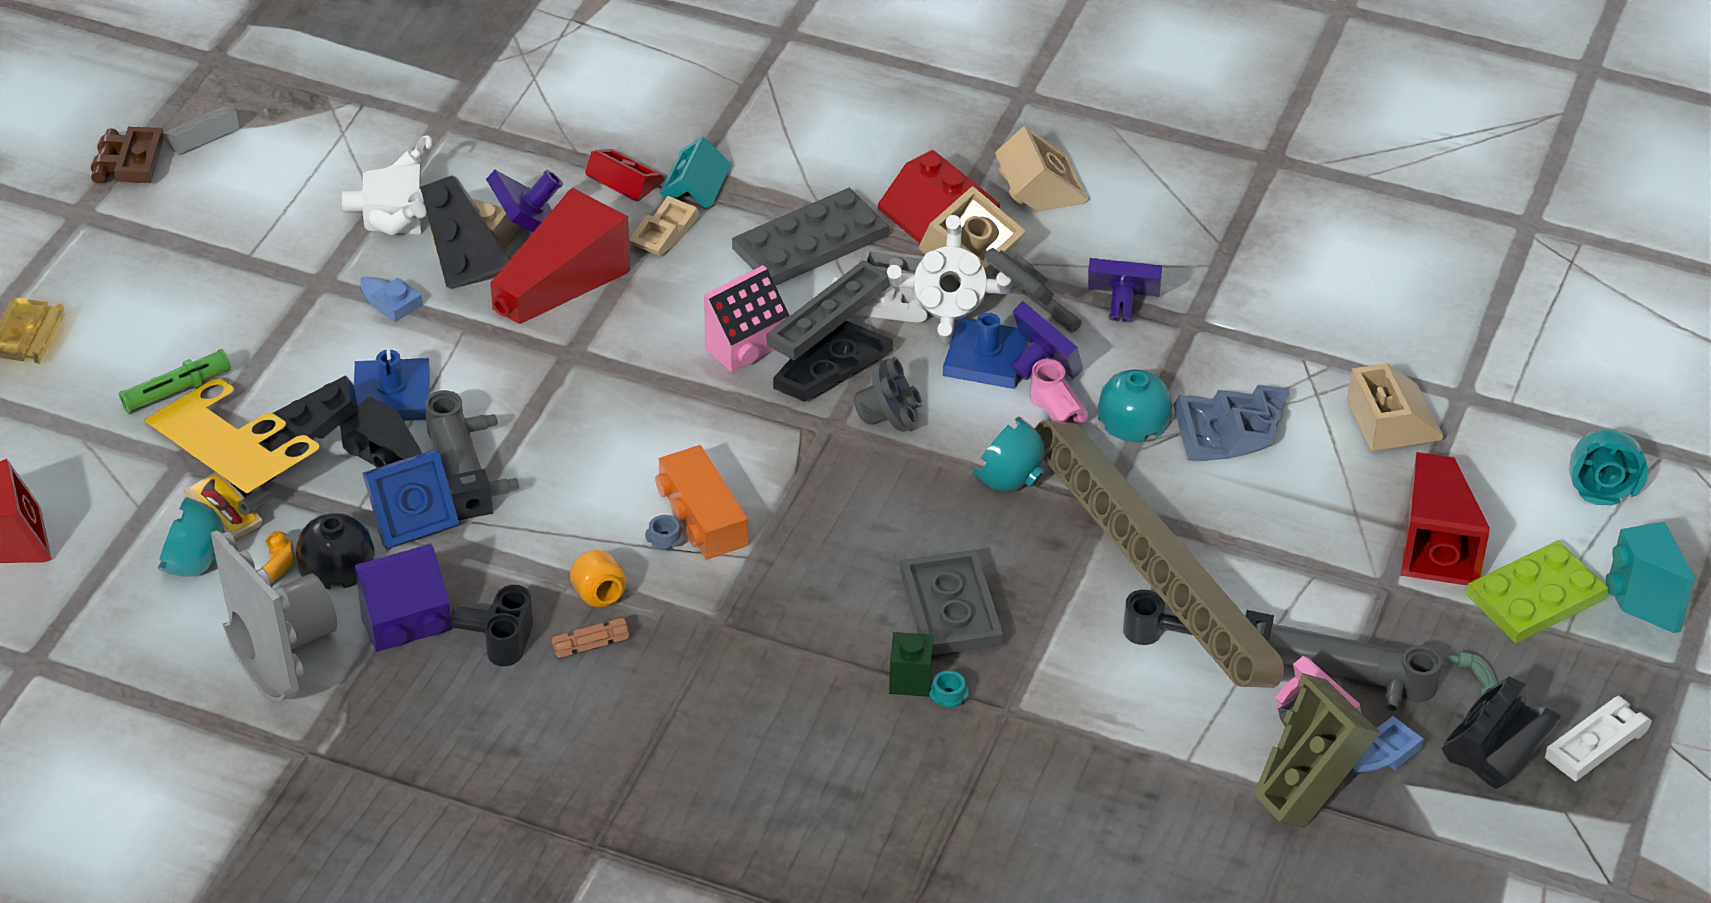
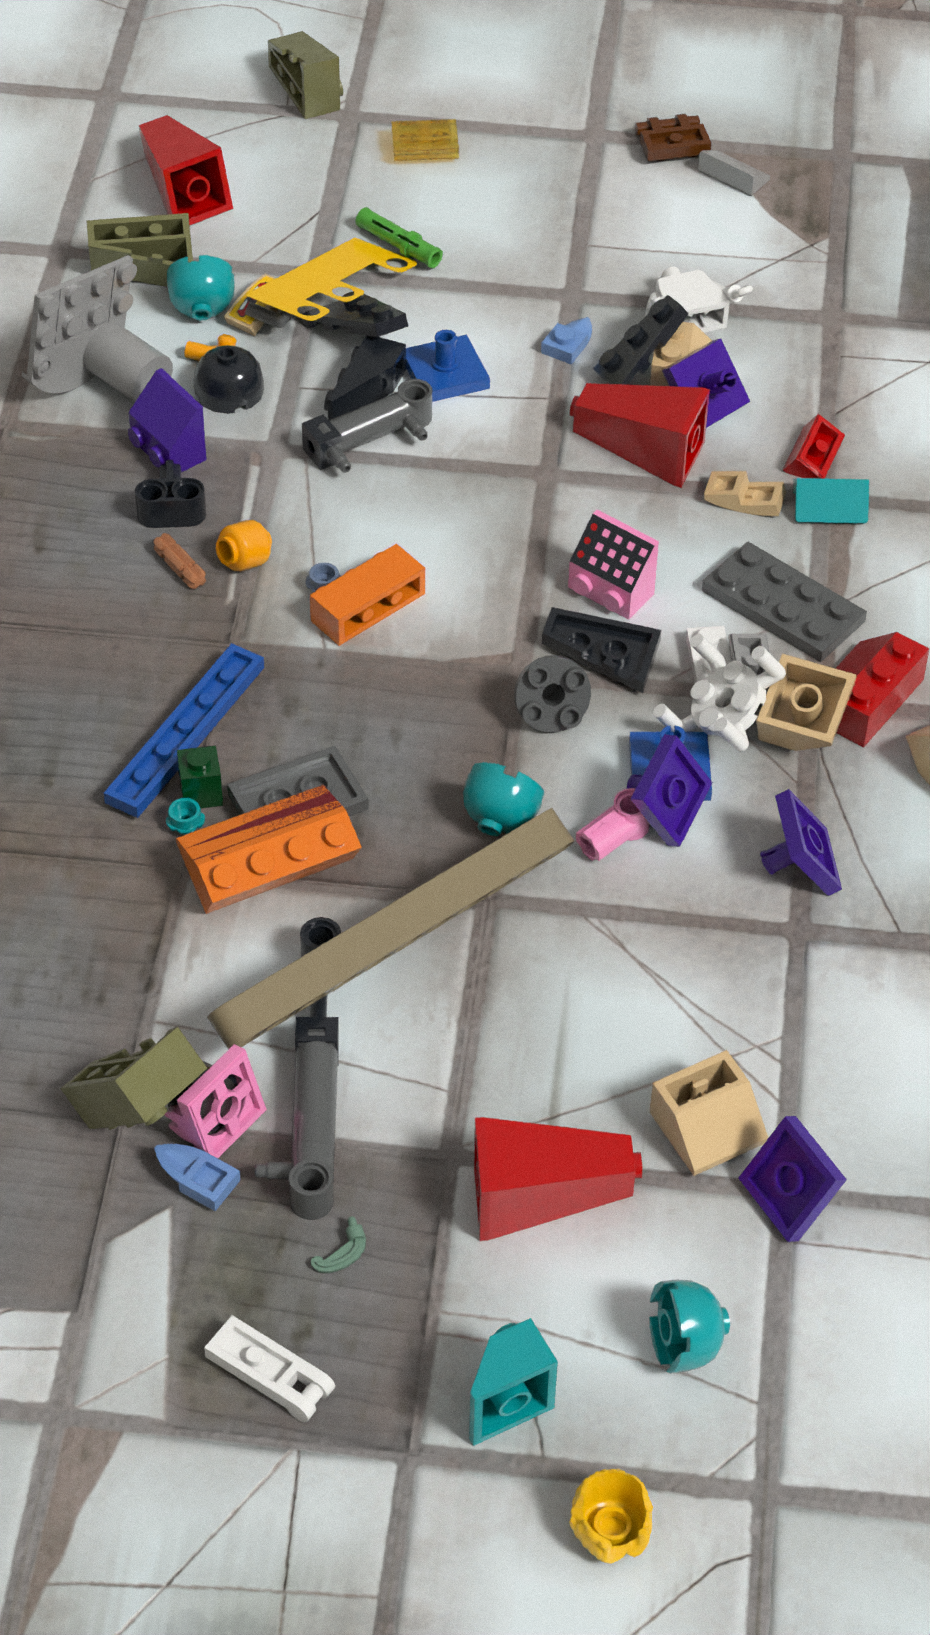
camera: 75 degrees right, 5 degrees up
(103, 572) = (149, 240): none -> olive wedge
(410, 498) = (289, 398): blue tile -> none
(828, 310) = (647, 618): dark grey plate -> none
(836, 670) = (183, 729): none -> blue plate
(1027, 624) = (268, 847): none -> orange slope
(1033, 286) = (754, 754): dark grey plate -> none
(1135, 405) = (632, 894): teal cylinder -> none
(1229, 422) = (642, 978): sand blue slope -> none
(1476, 370) = (792, 1178): none -> dark purple tile
(1499, 733) = (225, 1259): black piece -> none
(1537, 591) = (480, 1287): lime plate -> none

